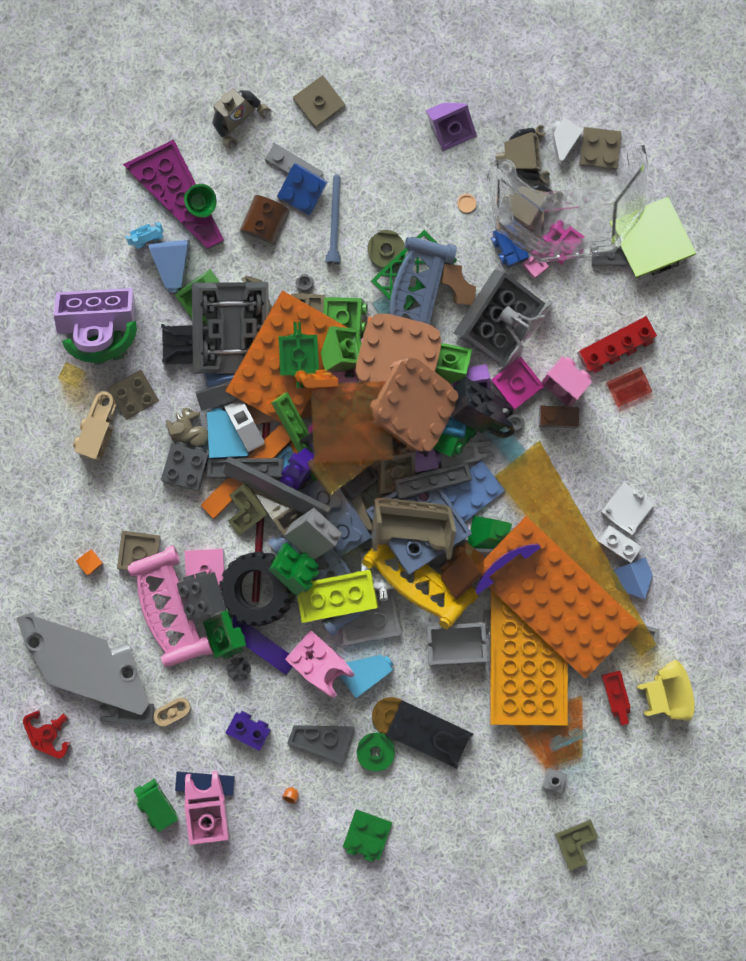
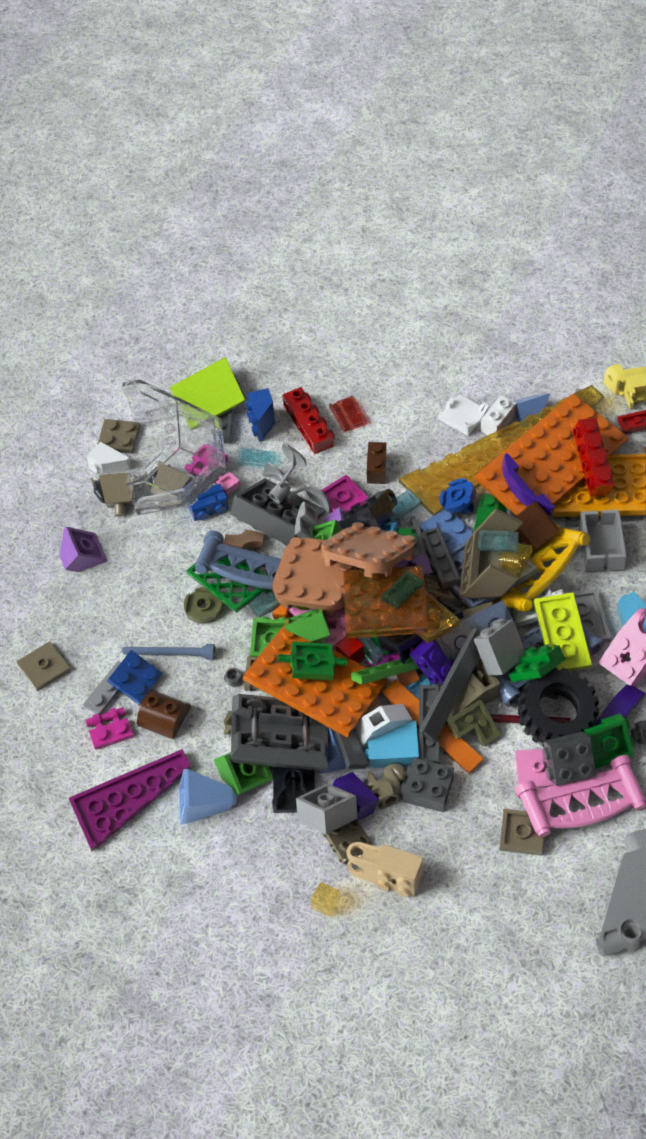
camera: 85 degrees left, 30 degrees down
(89, 562) = (536, 881): orange slope -> none
(93, 314) = (259, 867): lavender brick -> none
(115, 351) = (295, 857): green piece -> none
(144, 234) = (172, 821): medium azure plate -> none
(149, 373) = (326, 808): none -> light grey brick
(171, 398) = (365, 799): none -> dark purple brick
(200, 200) = (139, 763): green helmet -> none
(233, 110) = (46, 740): dark tan torso -> none
(244, 171) = (110, 733): none -> dark pink plate
(319, 379) = (339, 633): orange plate -> none
(354, 437) = (402, 590): none -> clear green plate
(416, 553) = (515, 562): none -> clear yellow plate
(433, 535) = (498, 541): none -> clear light blue plate
(466, 203) = (161, 541): light nougat piece -> none
(477, 345) = (305, 521): none -> light grey slope
(507, 499) = (459, 497): none -> blue tile
(547, 637) = (593, 457): none -> red brick
(566, 381) = (345, 441): bright pink brick -> none
(570, 293) = (255, 457): none -> clear light blue plate
(619, 295) = (261, 412): none -> blue slope

